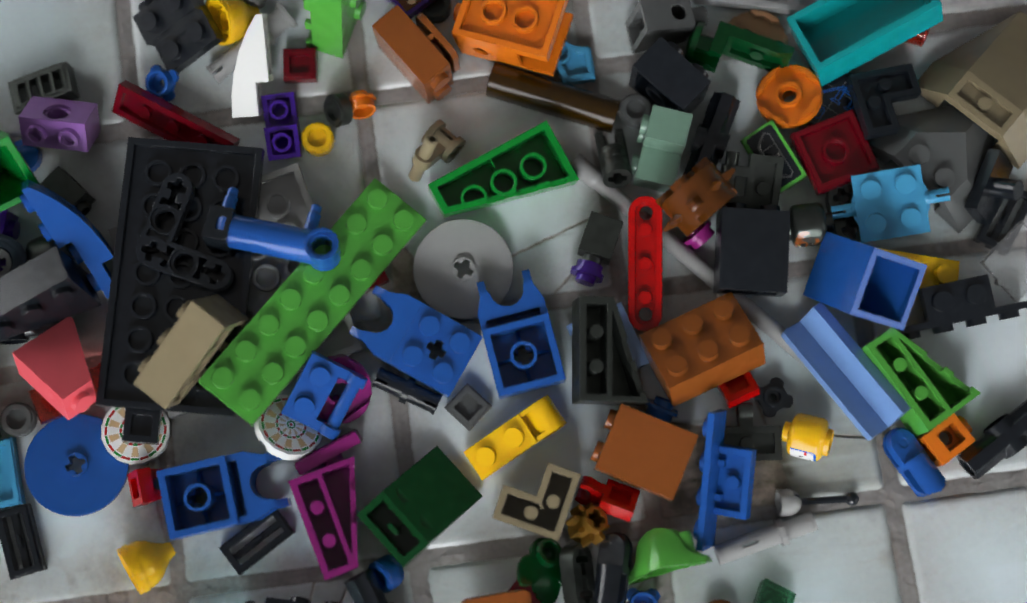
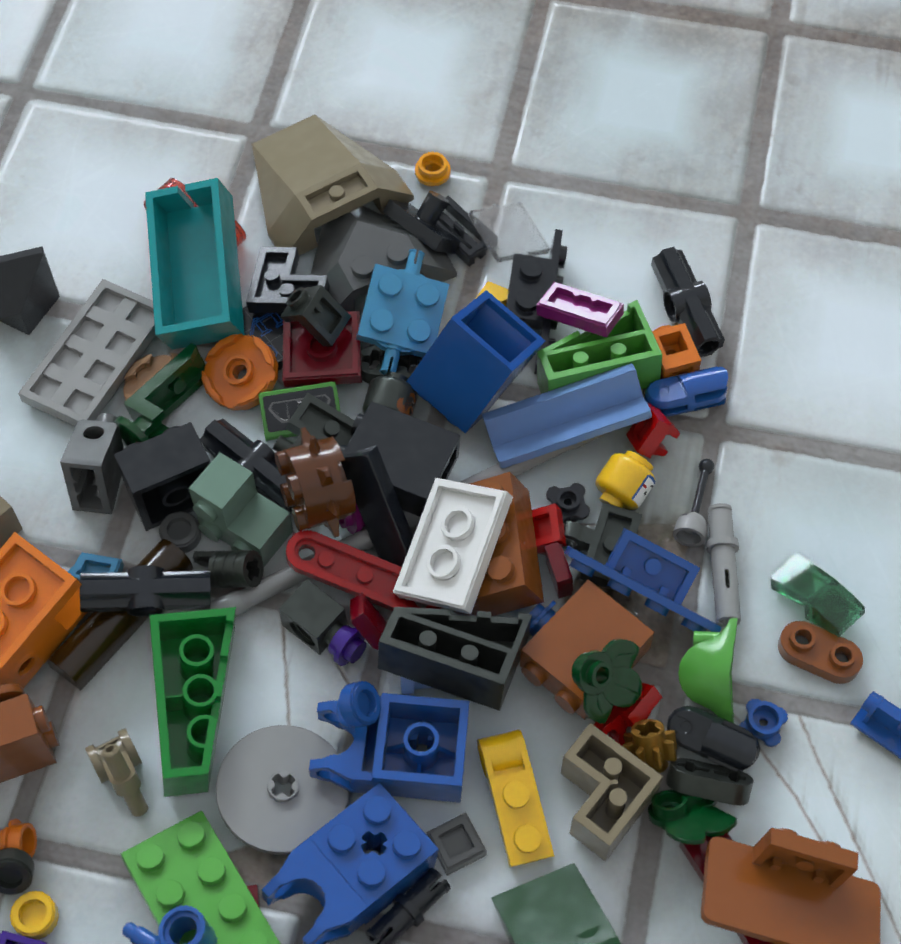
camera: 75 degrees left, 20 degrees down
(530, 300) = (358, 705): none -> blue tile
(567, 108) = (145, 591): none -> black piece
(609, 280) = (367, 620): none -> dark red tile
(619, 476) = (607, 678): none -> dark green plate
(686, 321) = (453, 545): none -> white tile
(700, 255) = (378, 504): none -> black slope
(715, 403) = (559, 570): none -> dark red tile
(856, 135) = (317, 313): none -> pearl dark grey bracket
(856, 446) = (648, 434): none -> red tile
(948, 348) = (580, 309): none -> magenta plate

